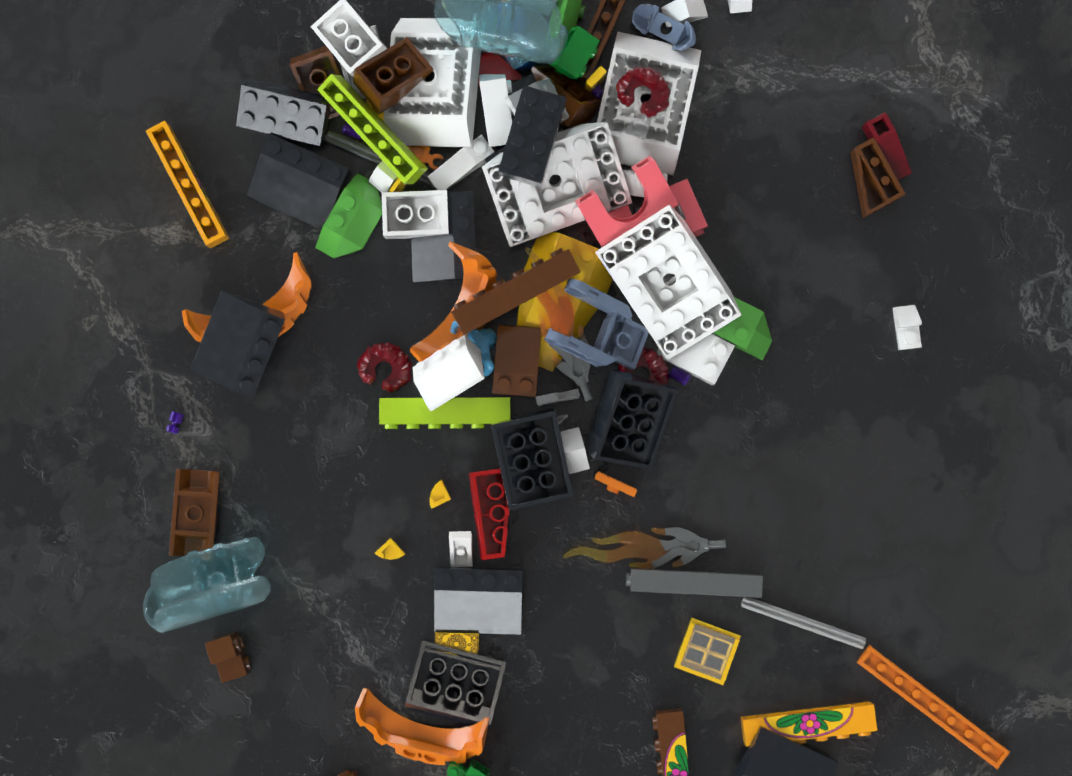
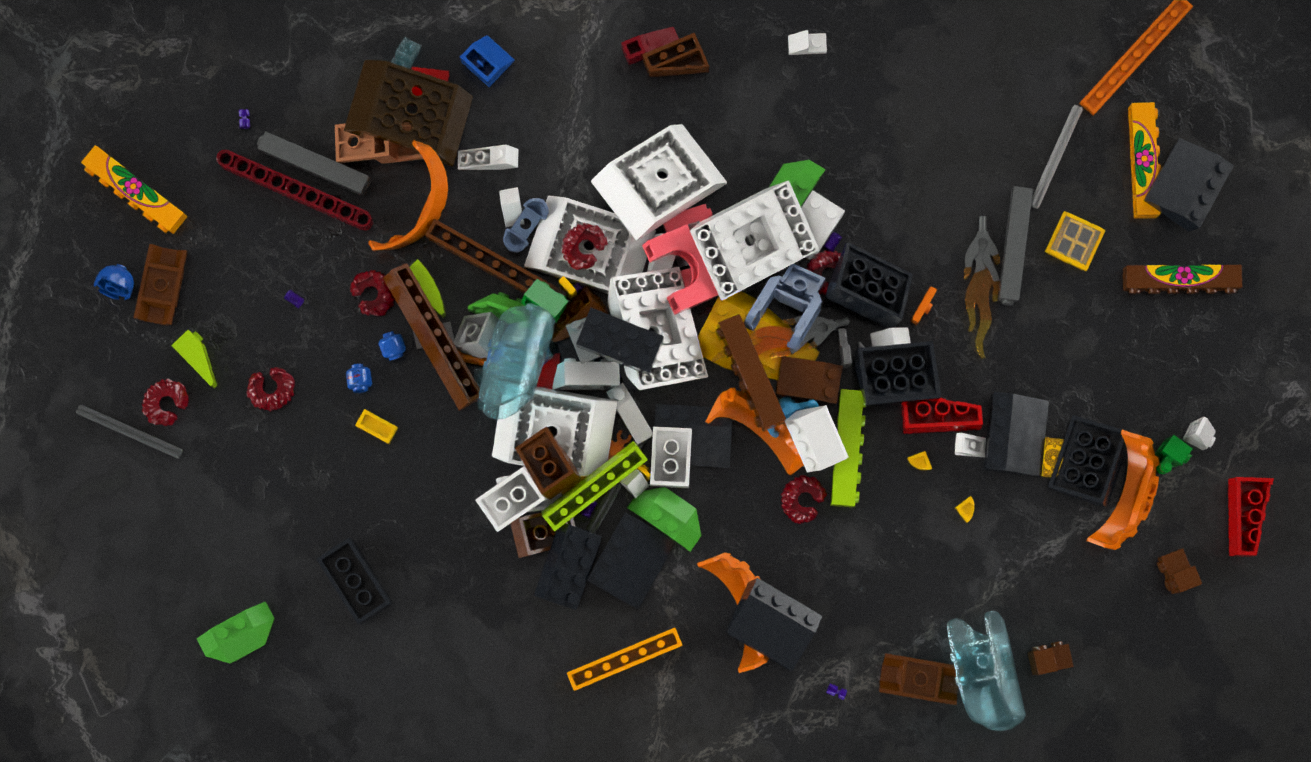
camera: 85 degrees left, 5 degrees down
(701, 160) = (643, 198): none -> white slope

